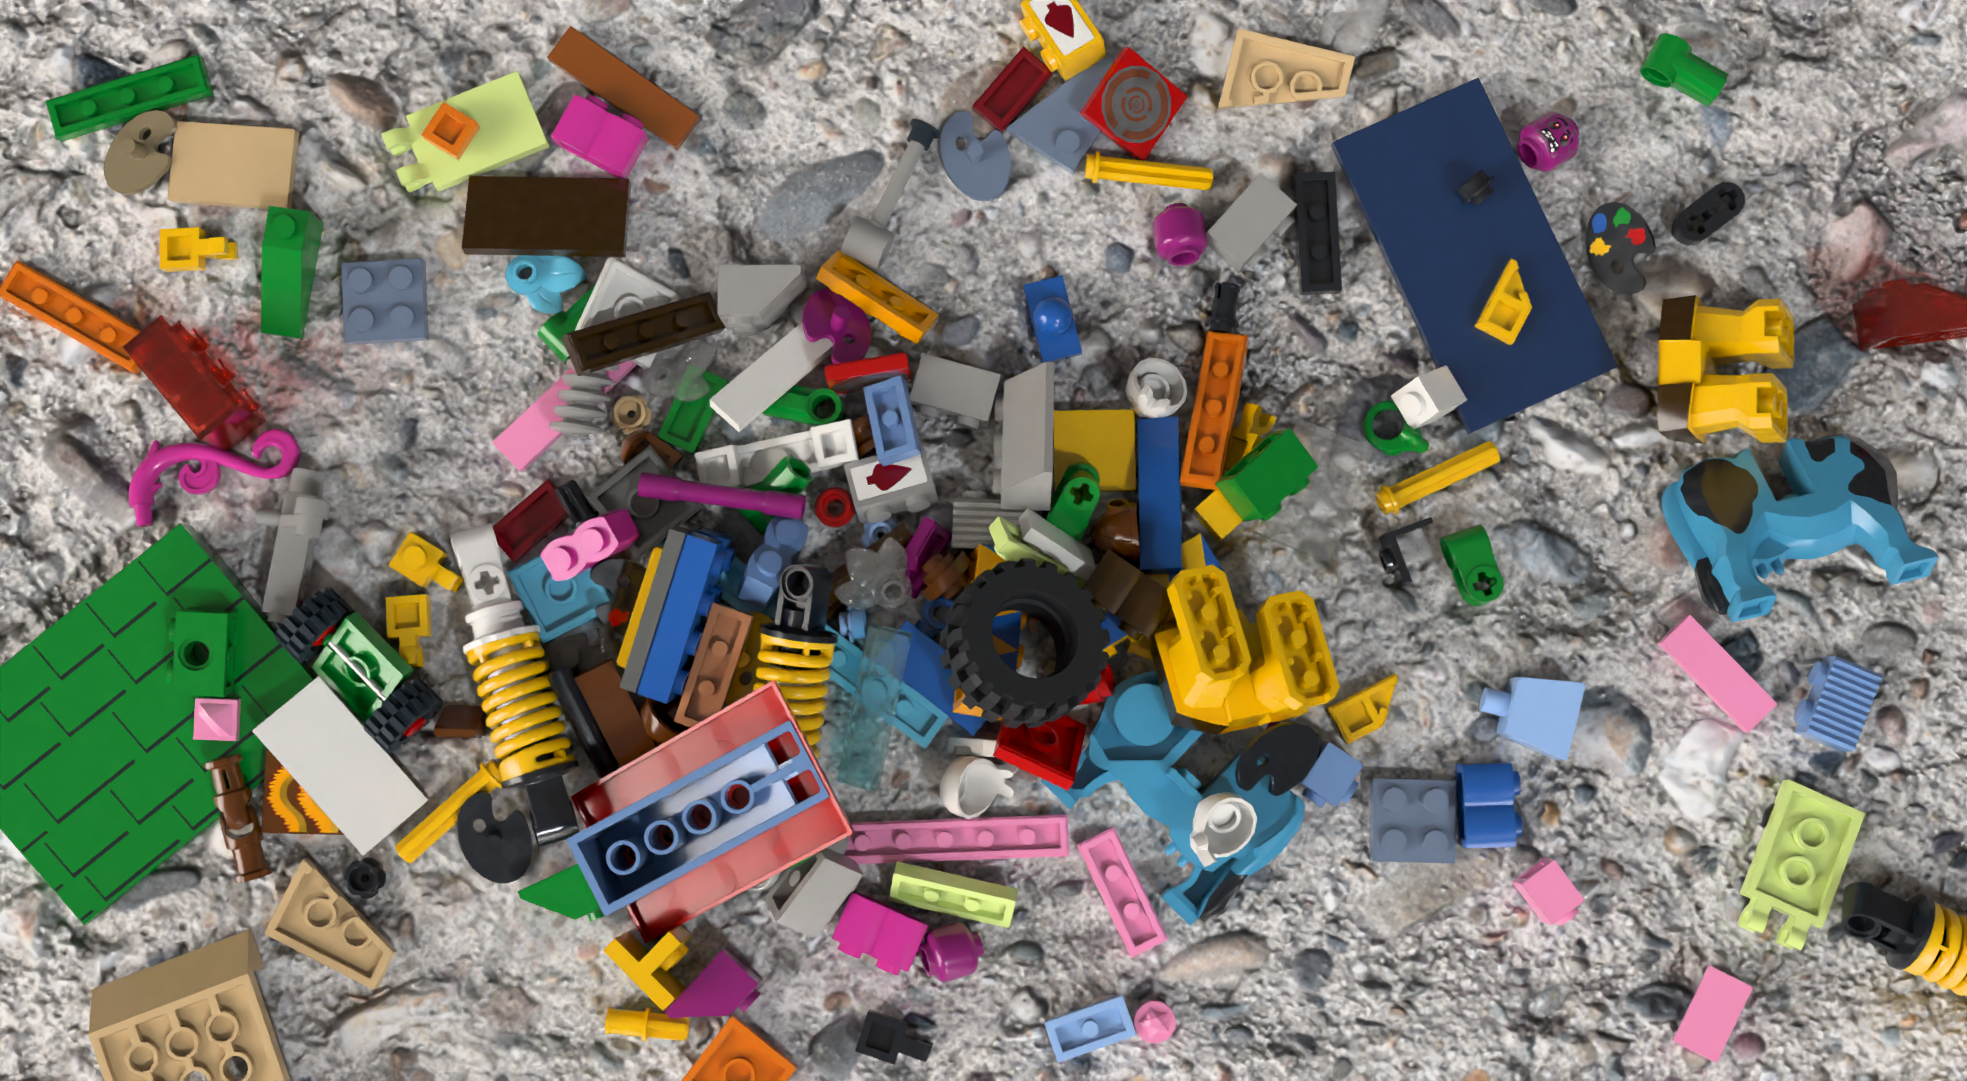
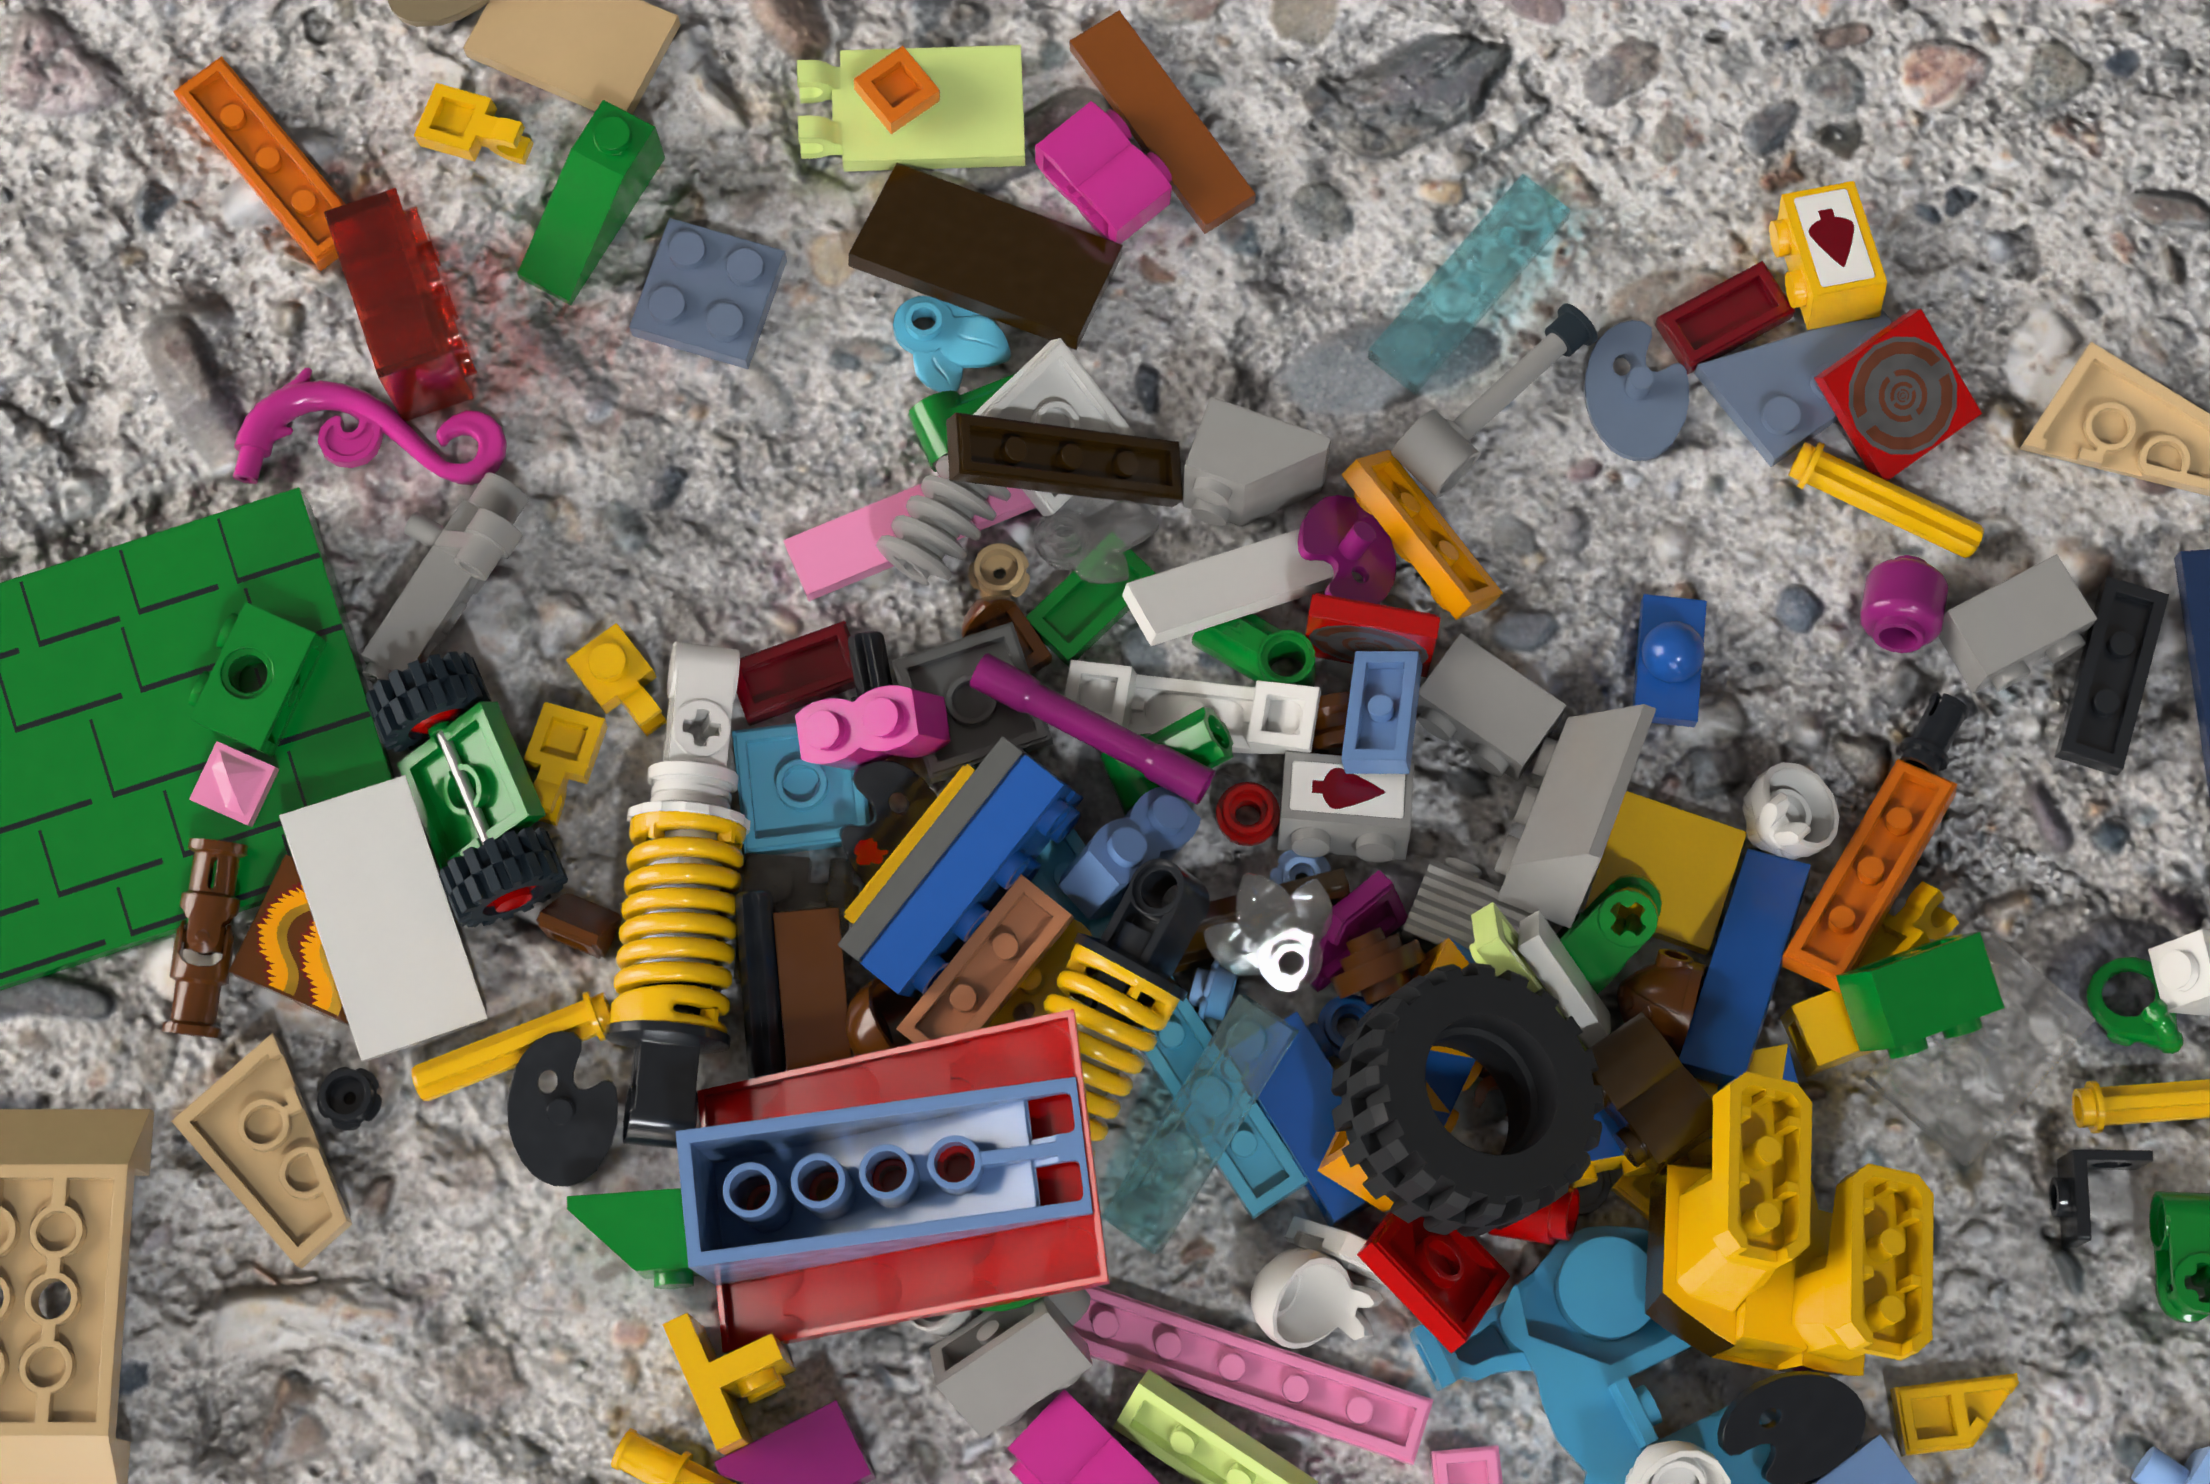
camera: 20 degrees right, 10 degrees down
(850, 125) = (1468, 284): none -> clear light blue plate

